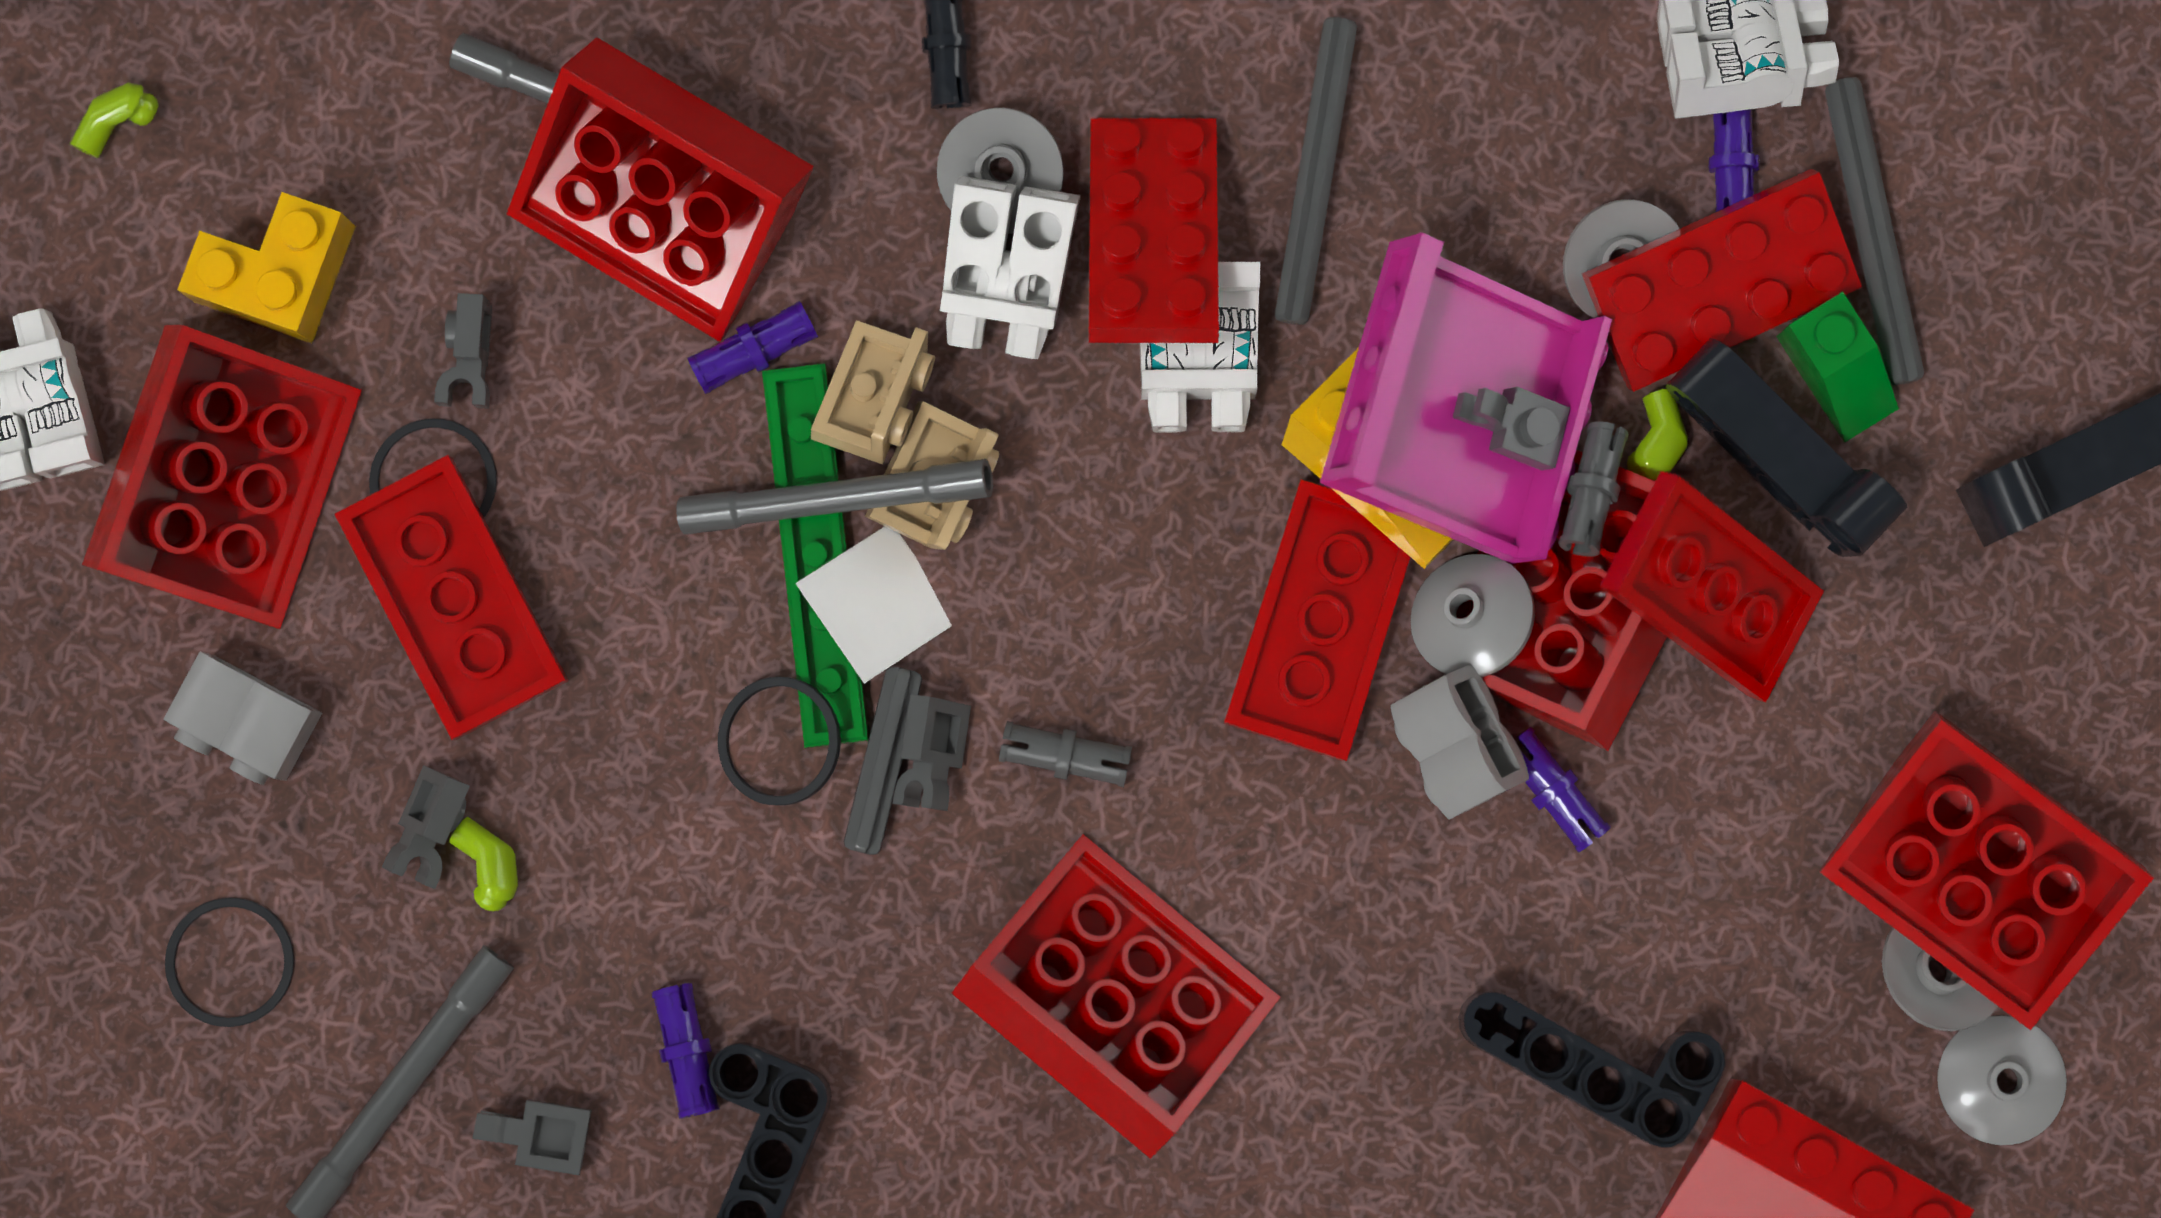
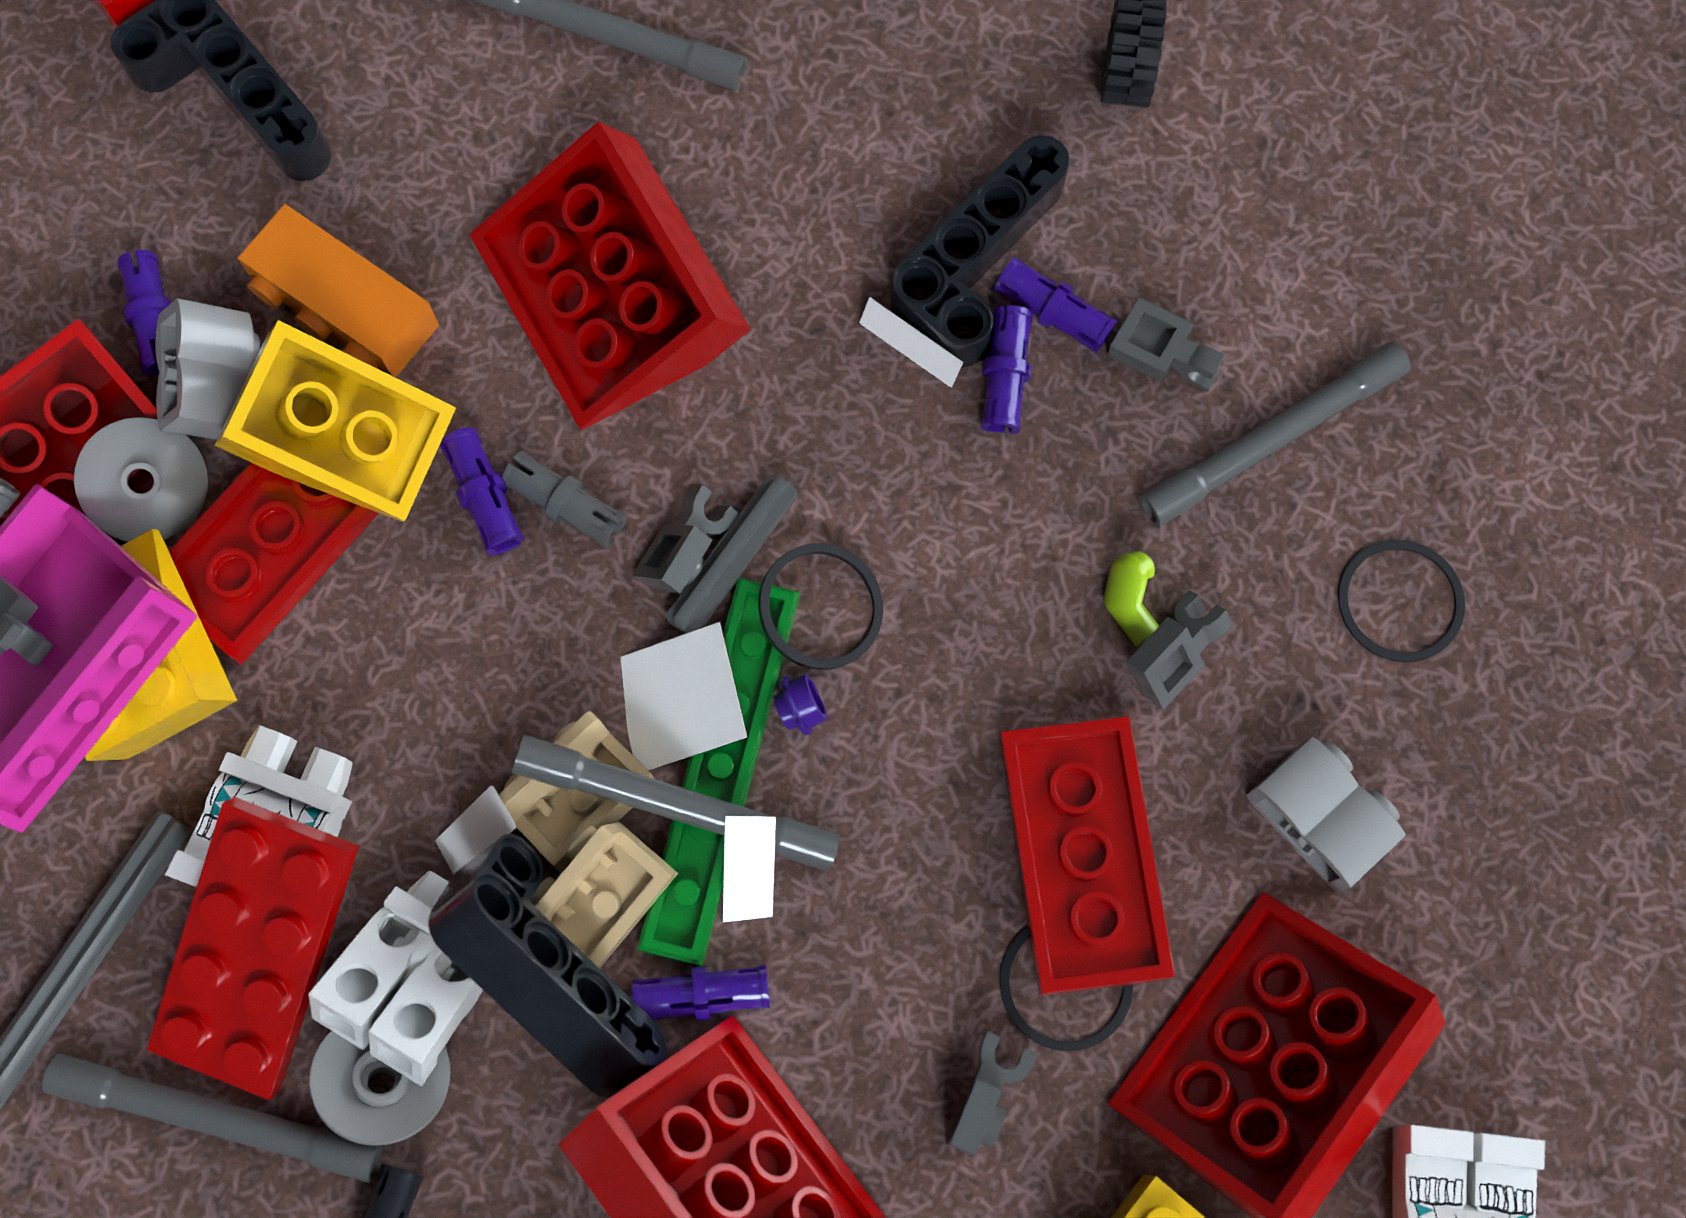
camera: 165 degrees left, 10 degrees down
(660, 1140) = (1055, 304): none -> dark purple pin
(750, 469) = (748, 867): none -> white sticker
(762, 639) = (800, 704): none -> dark purple plate
(791, 1044) = (911, 342): none -> white sticker
(895, 299) = (538, 973): none -> black beam
(1007, 405) = (475, 830): none -> white sticker
(1146, 730) = (481, 491): none -> dark purple pin
(1235, 76) = (109, 1088): none -> dark grey piece
(1303, 728) = (335, 423): none -> yellow slope
(1374, 874) = (337, 292): none -> orange brick

